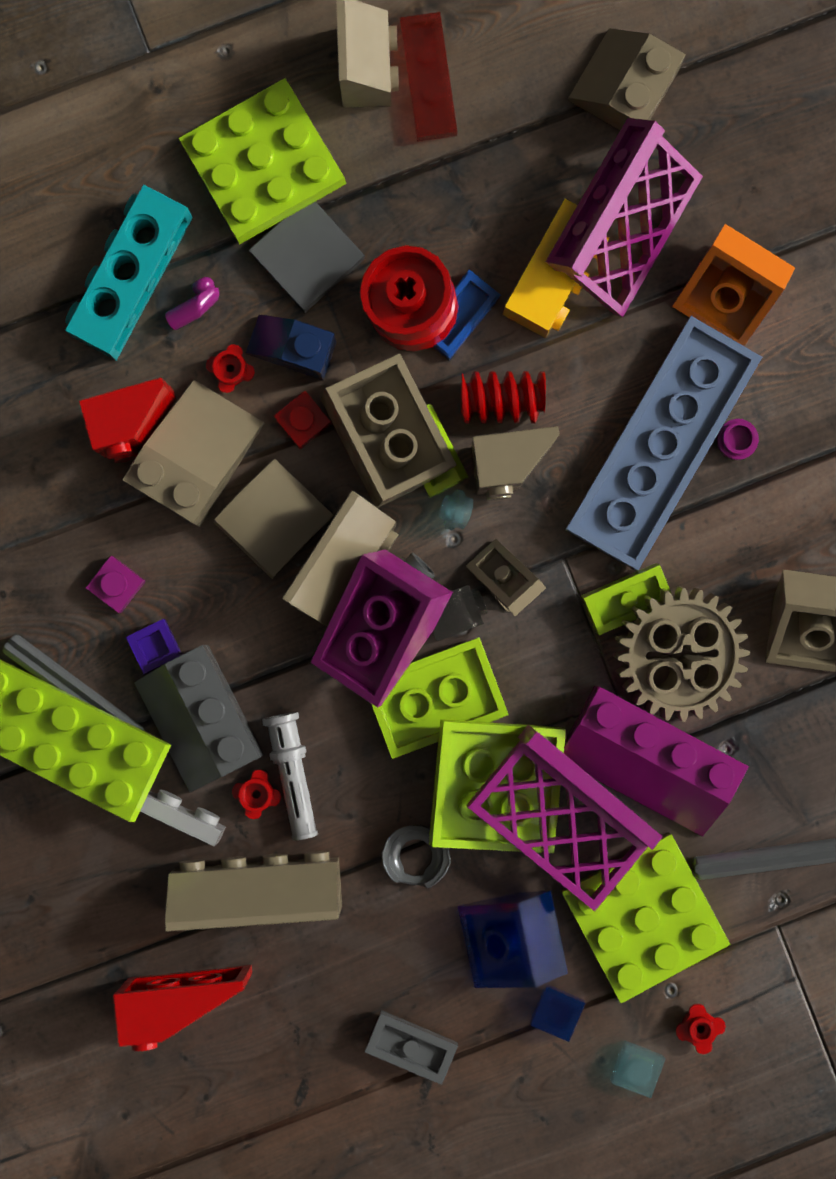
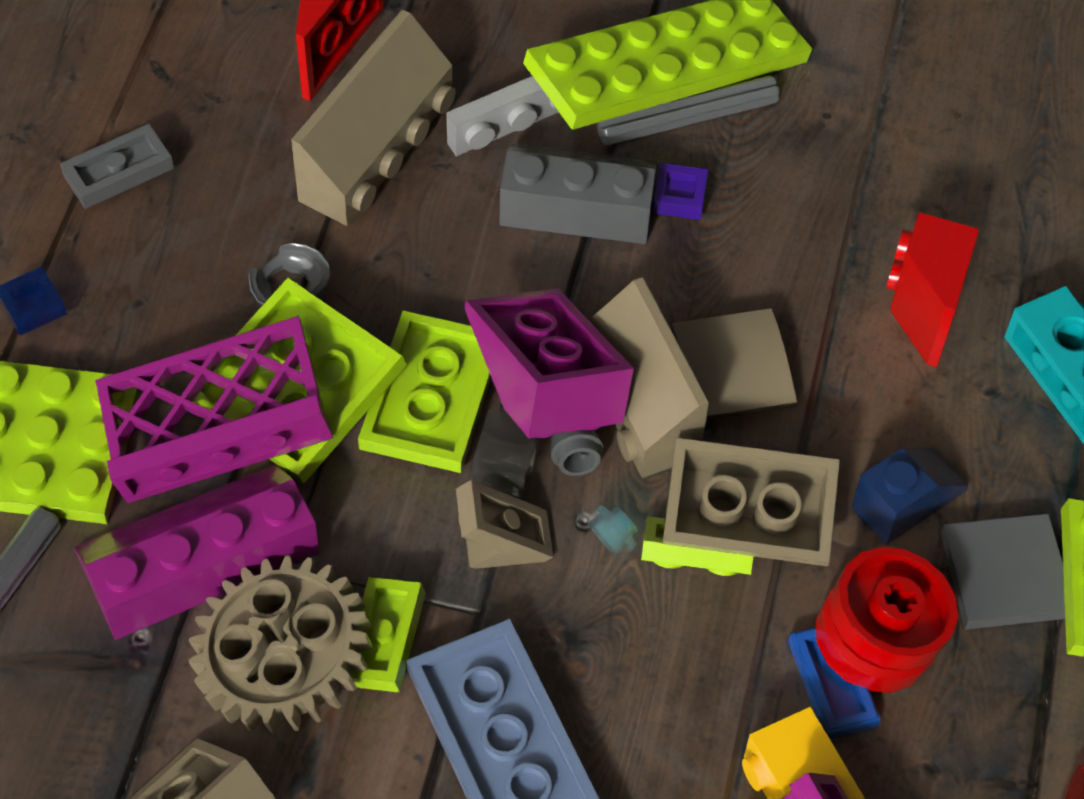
camera: 120 degrees right, 30 degrees down
(115, 584) = (767, 201): magenta plate -> none
(194, 453) = (853, 331): dark tan slope -> none
(195, 307) = (1015, 430): magenta arm -> none
(219, 364) = (927, 410): red plate -> none
(252, 805) = (466, 179): red plate -> none
(288, 755) = (480, 233): light grey pin -> none
(302, 419) = (824, 443): red plate -> none
(503, 396) = (707, 646): red piece -> none
(507, 459) = (630, 595): dark tan slope -> none
(513, 940) = (131, 307): clear blue slope -> none

